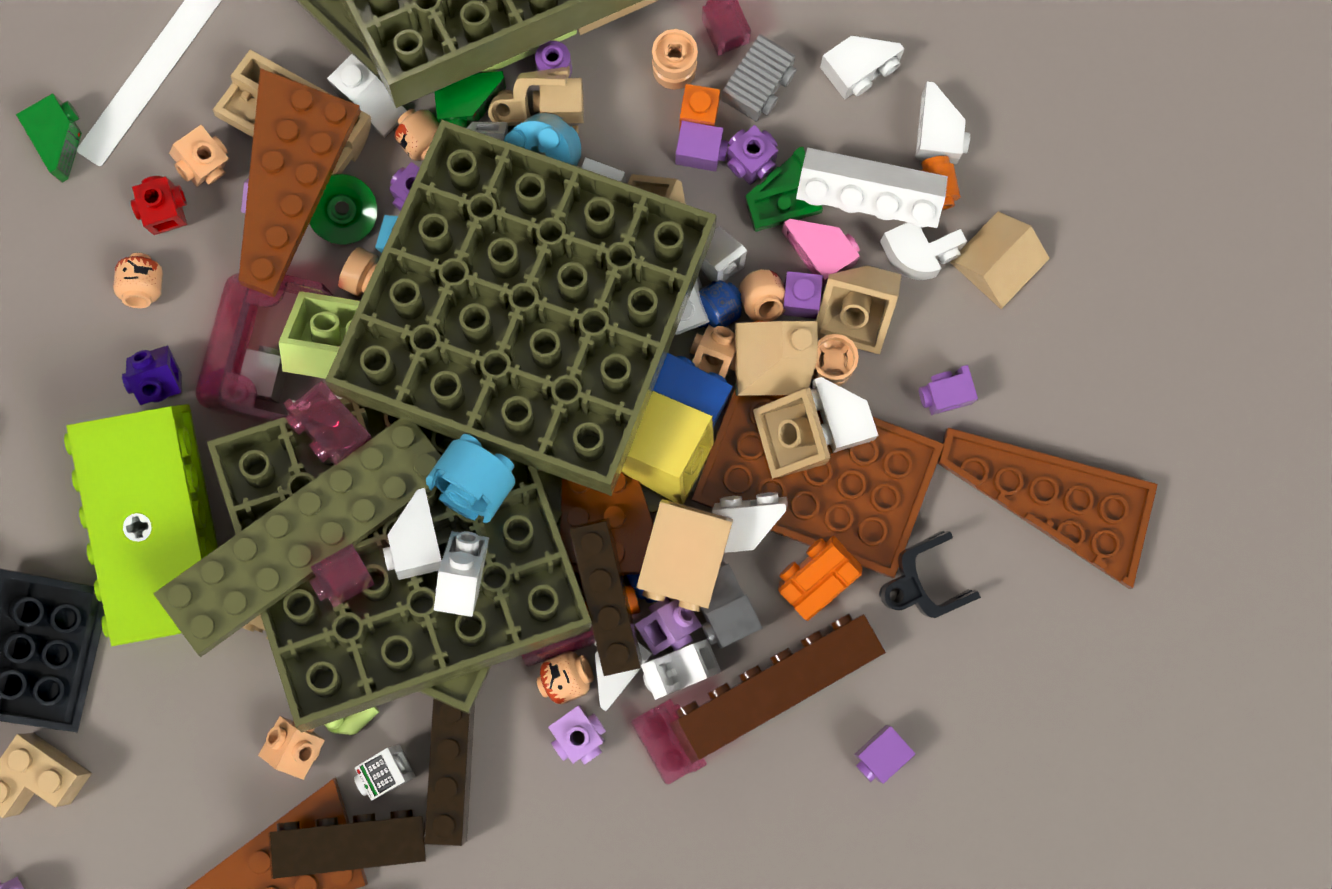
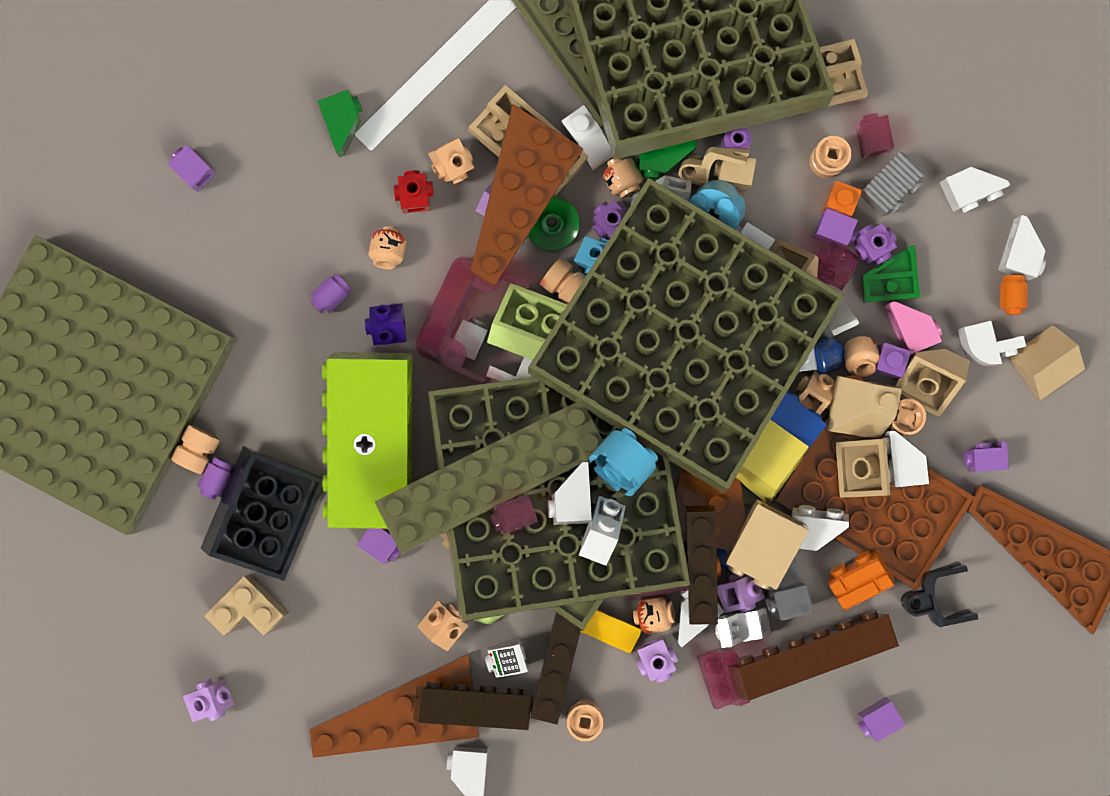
camera: 10 degrees right, 5 degrees up
(75, 353) = (330, 294): none -> medium lavender brick
(185, 661) = (379, 545): none -> medium lavender brick
(327, 423) = (521, 396): clear pink bracket -> none
(498, 833) = (584, 720): none -> light nougat wheel
(513, 709) = (612, 631): none -> yellow slope
(708, 188) = (836, 265): none -> clear pink brick
(872, 188) = (963, 292): white brick -> none

